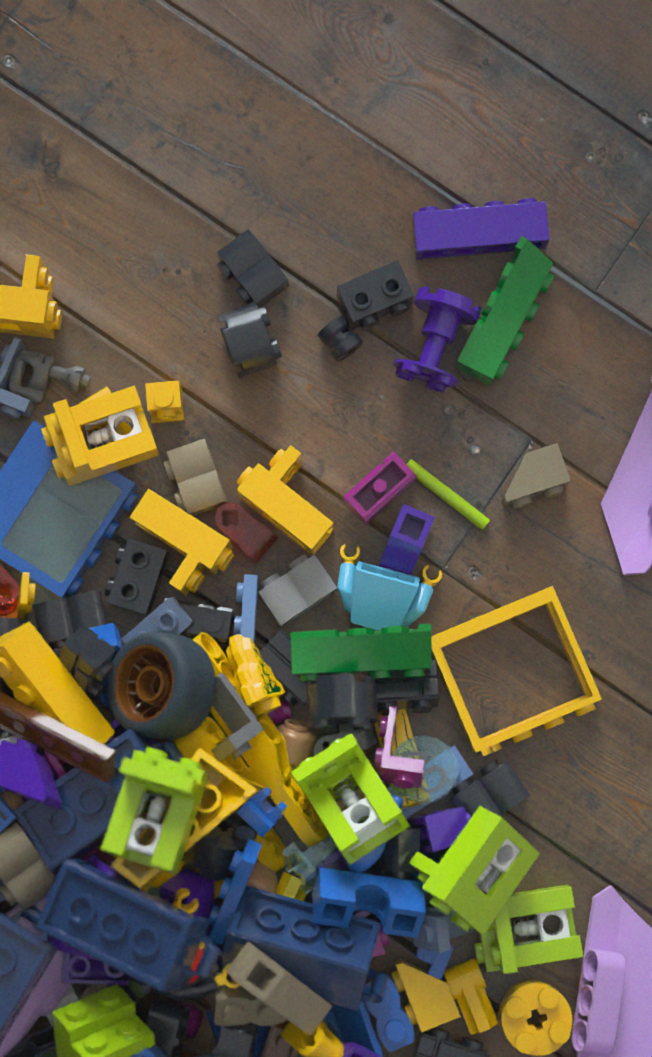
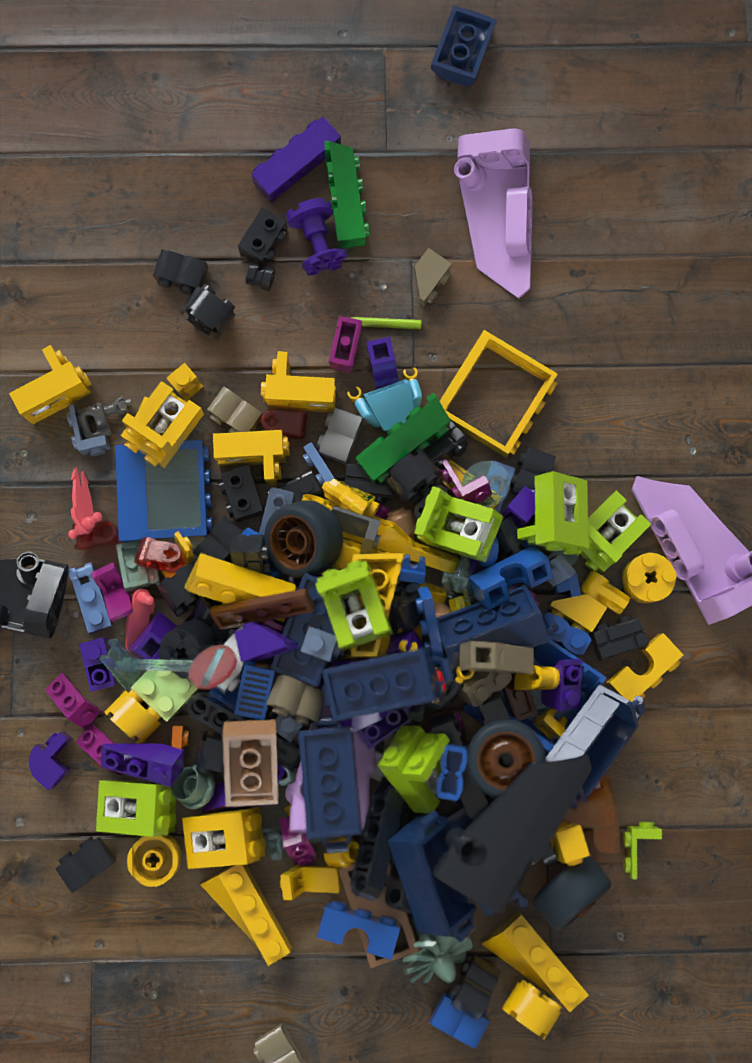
camera: 40 degrees left, 0 degrees up
(87, 826) = (322, 645): none -> sand blue bracket

